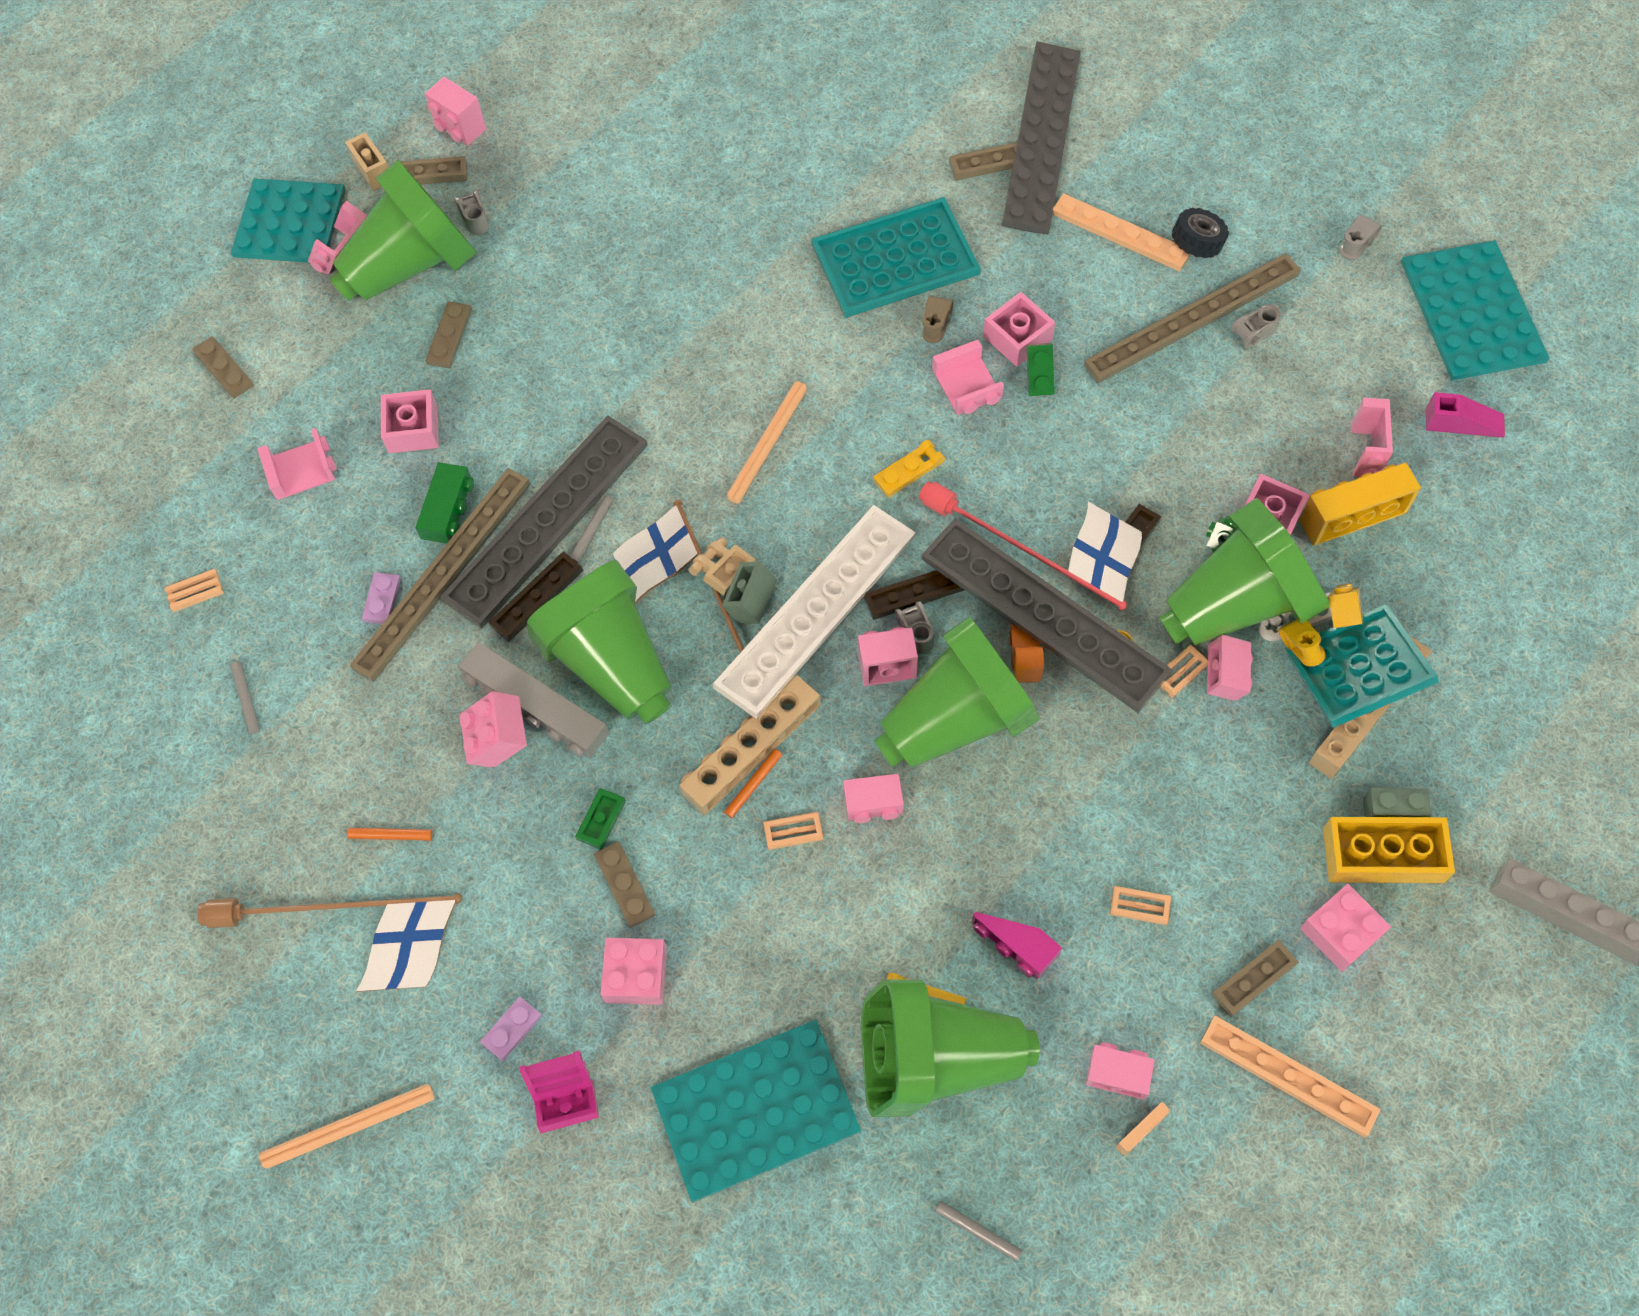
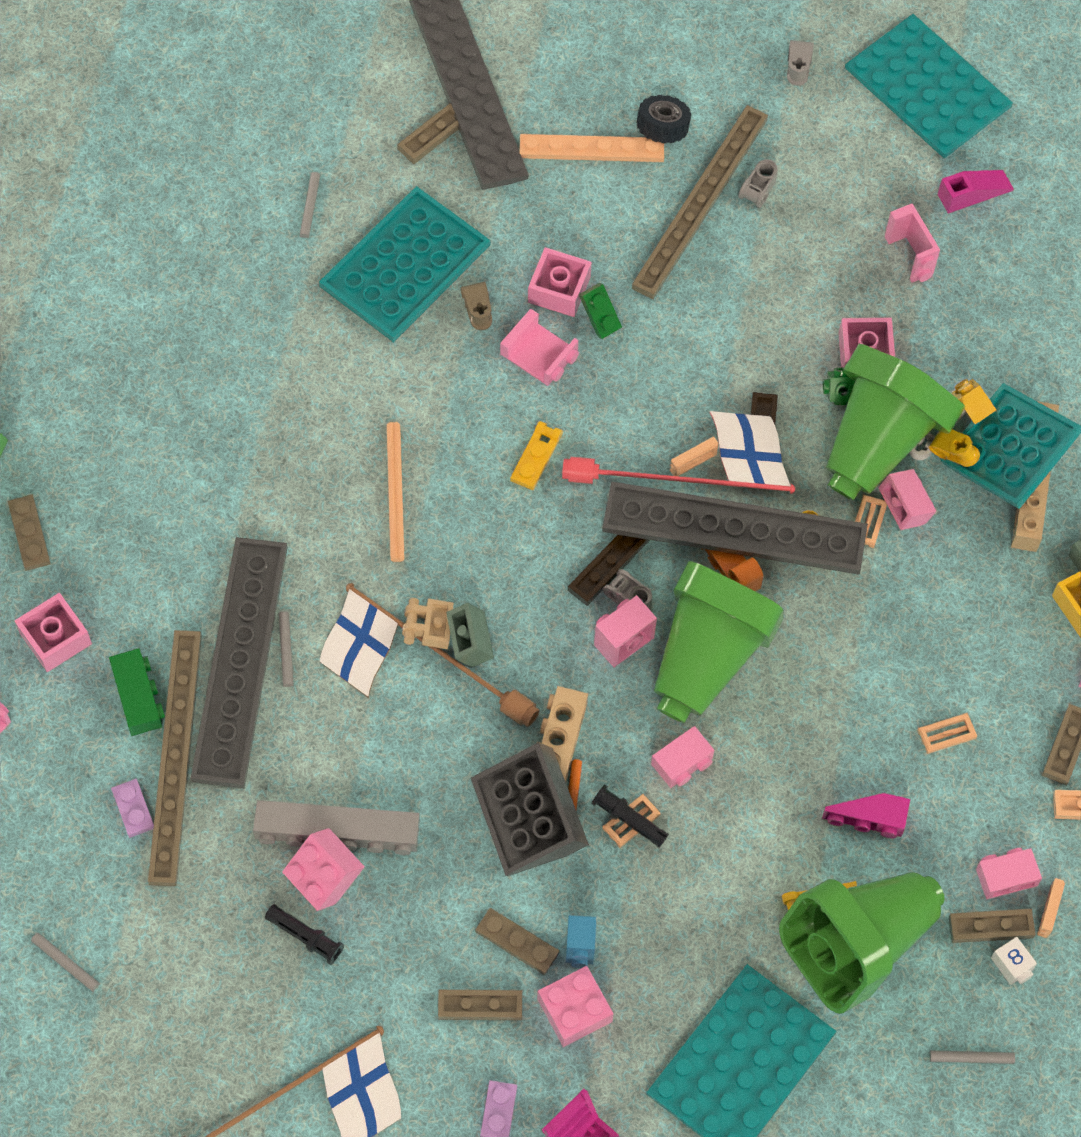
camera: 35 degrees left, 0 degrees up
(390, 834) = (282, 1008): orange bar -> none
(452, 788) = (314, 939): none -> black pin
(540, 590) = (276, 734): dark brown plate -> none
(555, 923) = (480, 1005): none -> dark tan plate
(600, 819) = (462, 897): green plate -> none
(604, 642) = (380, 743): bright green cone -> none
(673, 914) = (580, 941): none -> dark azure brick
(700, 771) = (529, 810): none -> dark grey slope
(784, 814) = (619, 809): none -> black pin
(813, 612) = (538, 623): white plate -> none
(845, 176) = (309, 205): none -> light grey bar
(1049, 535) = (694, 457): none -> light nougat tile
(1074, 1113) = (991, 925): none -> dark tan plate
(1074, 1161) = (1014, 961): none -> white brick
(1359, 503) = (933, 305): yellow brick -> none

